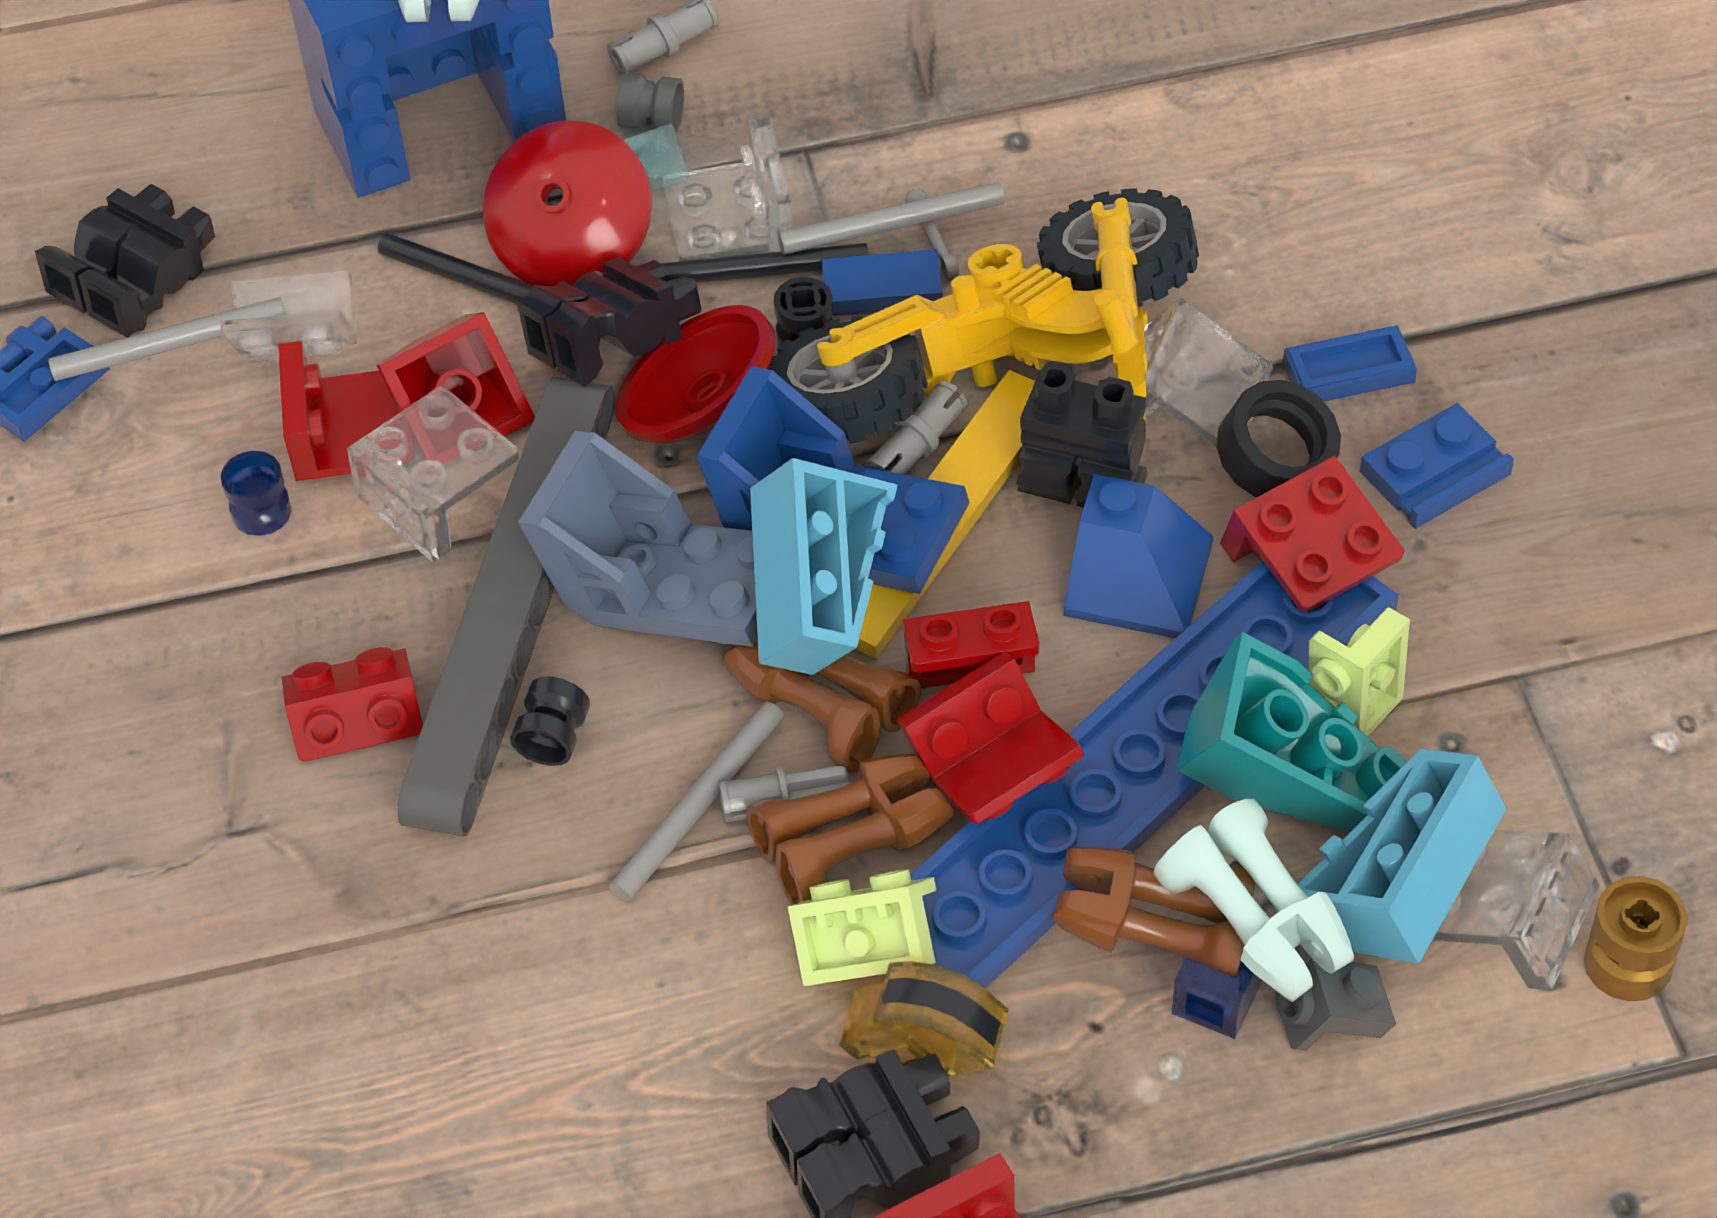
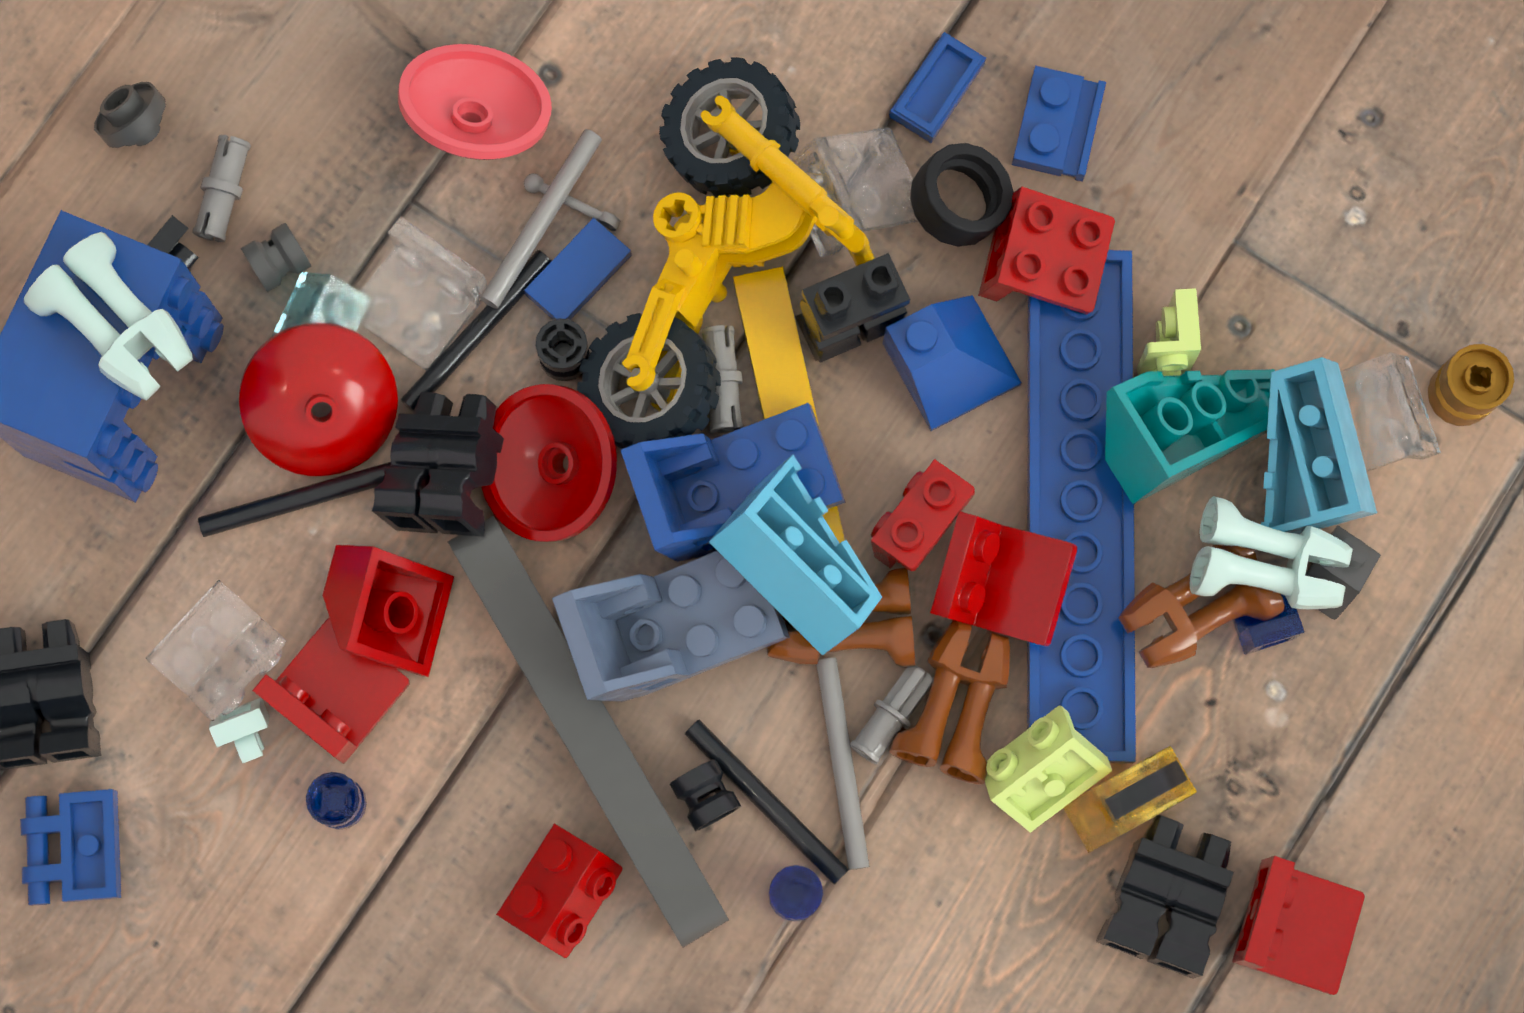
camera: 50 degrees left, 25 degrees up
(156, 341) = (153, 744): light grey bar -> none
(246, 389) = (242, 728): none -> light aqua tile
(425, 465) = (441, 681): clear bracket -> none
(539, 856) = (792, 900): none -> clear blue wheel
(576, 39) = (167, 241): none -> black tile
(599, 780) = (767, 802): none -> black bar
(922, 97) = (474, 101): none -> coral dish

